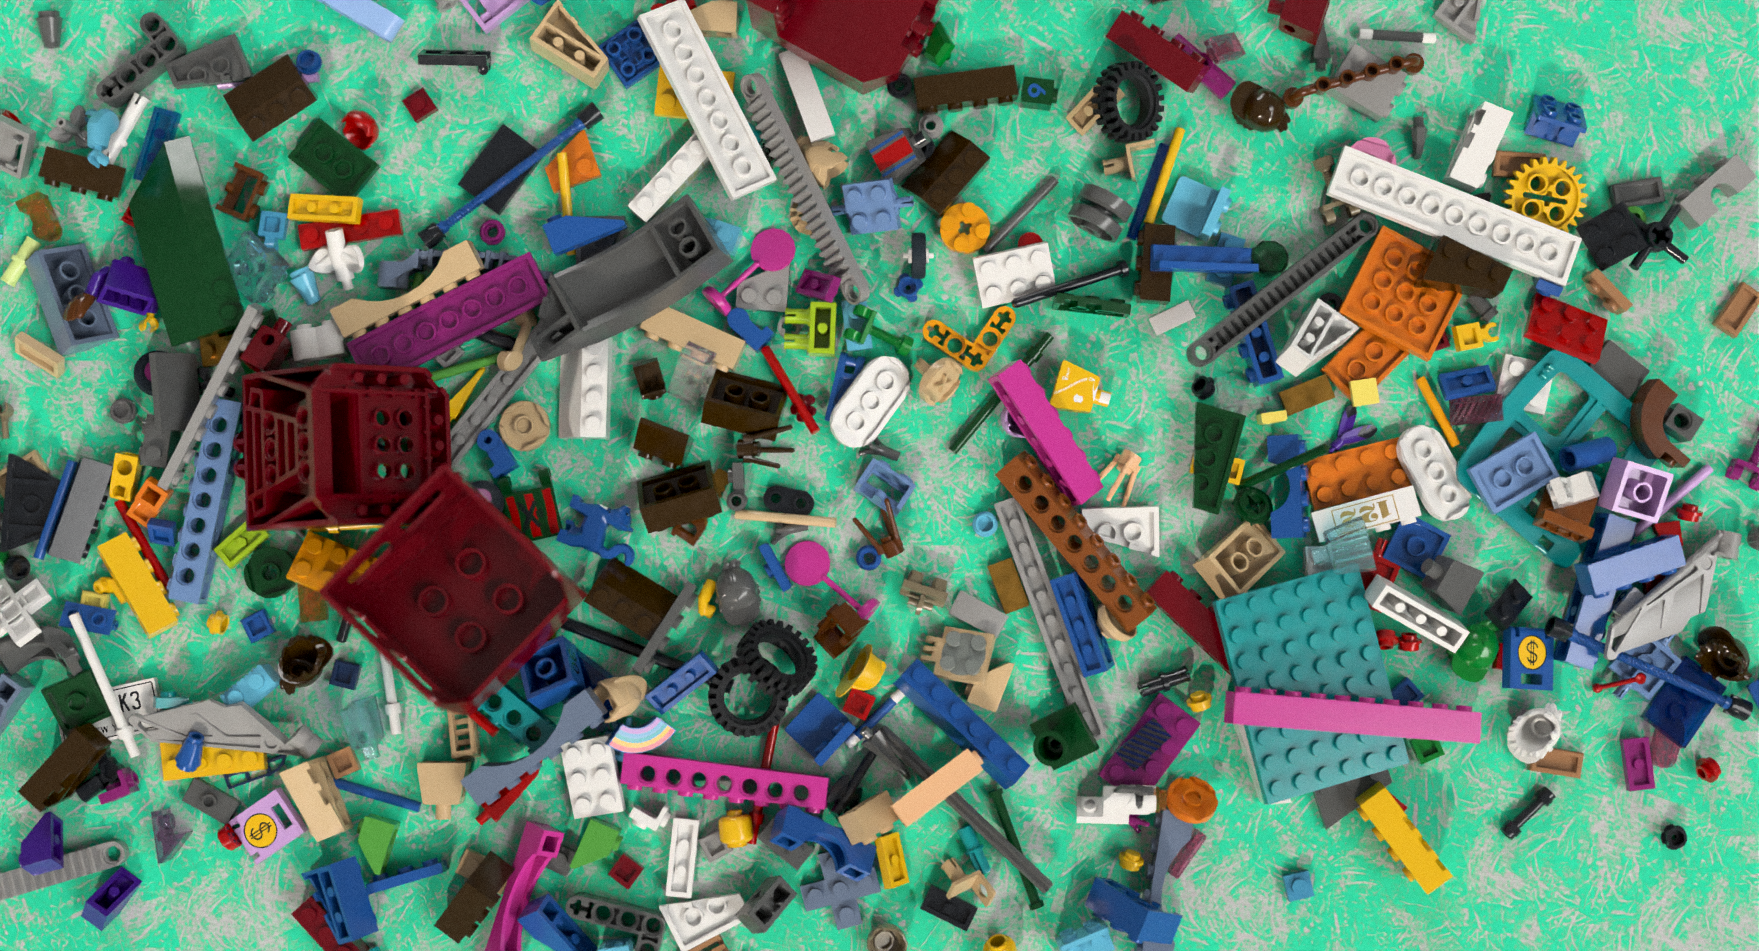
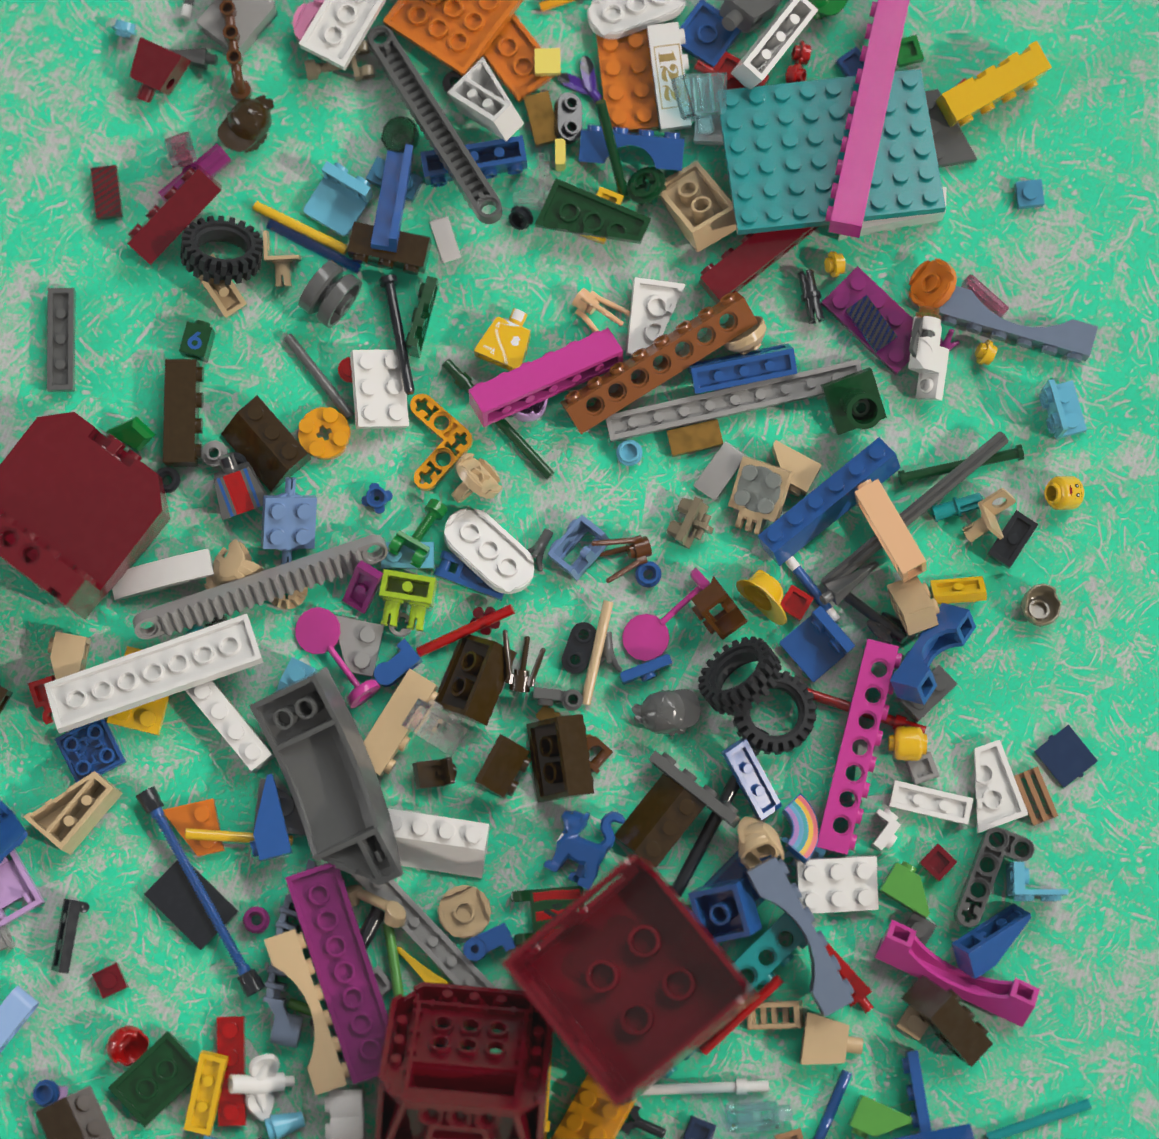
camera: 80 degrees left, 5 degrees down
(704, 597) = (668, 746): yellow arm -> none
(766, 904) = (988, 720): dark grey brick -> none
(838, 892) = (984, 649): sand blue plate -> none
(918, 255) = (346, 481): black wheel -> none
(1131, 913) = (1037, 356): blue wedge -> none
(1311, 419) = (567, 115): none -> plate

